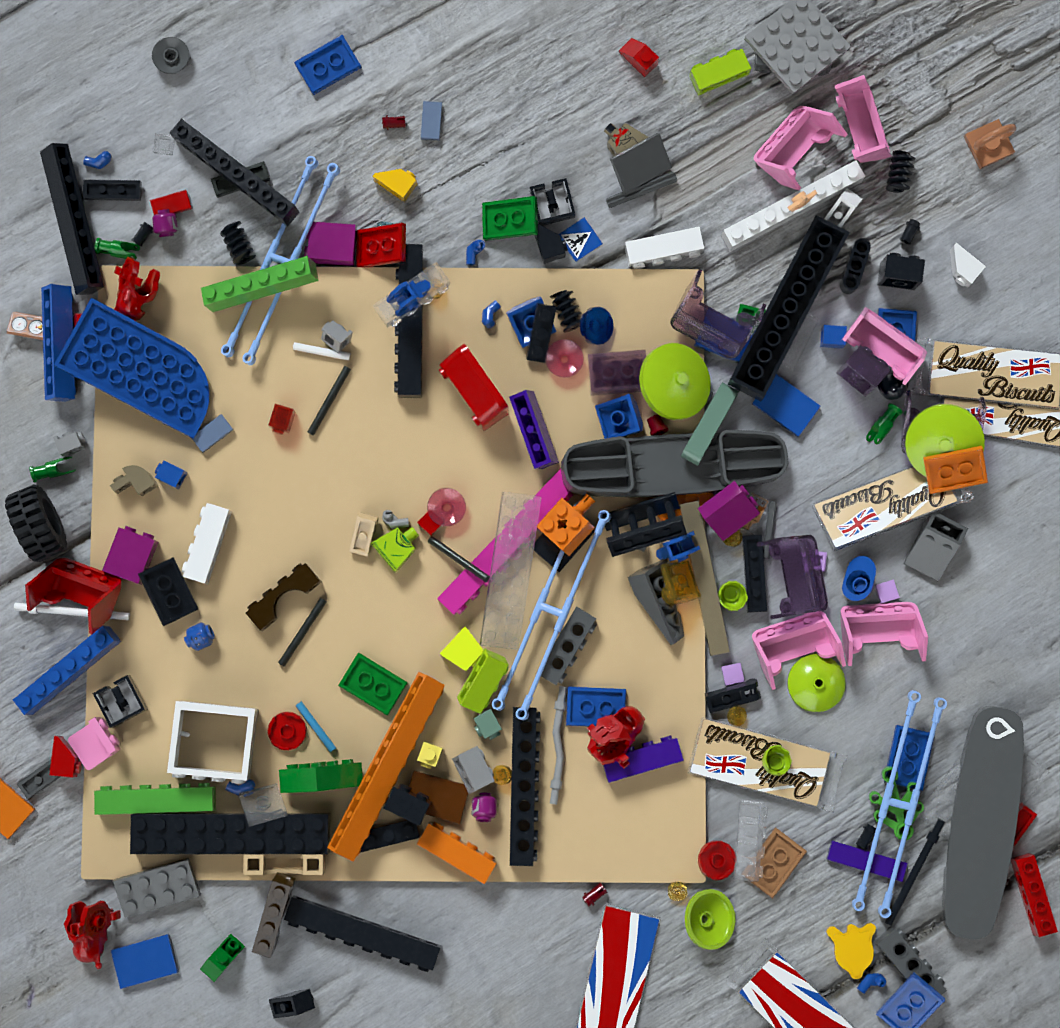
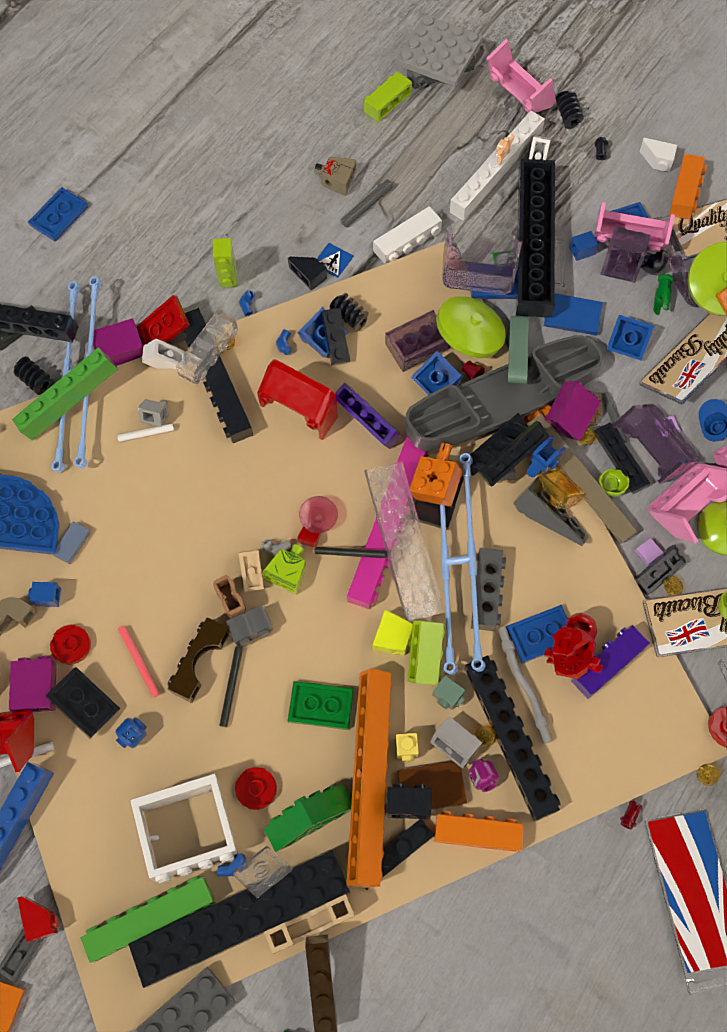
camera: 20 degrees left, 15 degrees down
(94, 743) = (63, 888): bright pink bracket -> none
(120, 702) = (76, 833): piece -> none
(176, 530) = (70, 644): none -> red tile
(206, 543) = (104, 642): white brick -> none
(230, 573) = (139, 661): none -> coral bar
(281, 419) = (132, 502): clear red brick -> none
(315, 726) = (282, 771): dark azure bar -> none
(328, 401) = (169, 471): pearl dark grey bar -> none
(332, 559) = (229, 597): none -> medium nougat brick
(340, 585) = (250, 626): none -> dark grey brick
(362, 933) = (421, 962): black brick -> none
(369, 279) = (161, 355): none -> white slope
(393, 122) = (133, 233): dark red pin -> none
(397, 182) = (155, 275): yellow slope -> none
(408, 295) = (203, 341): blue hinge -> none
(431, 120) = (165, 221): sand blue tile -> none
(467, 206) = (225, 262): none -> lime brick
(509, 218) = (266, 263): green tile -> none
(553, 204) = (300, 240): piece -> none
(567, 349) = (368, 343): clear pink dish -> none
(596, 325) = (381, 312): clear blue tile -> none
(639, 56) = (318, 110): red slope -> none
(641, 163) = (356, 180): dark grey tile -> none
(793, 140) = (472, 117): bright pink windscreen -> none
(826, 456) = (630, 337): none -> blue slope
(855, 257) = (572, 188): black beam -> none
(901, 271) = (612, 174): black brick -> none
(969, 319) = (687, 186): none -> orange brick
(990, 143) = (628, 66): nougat tile -> none

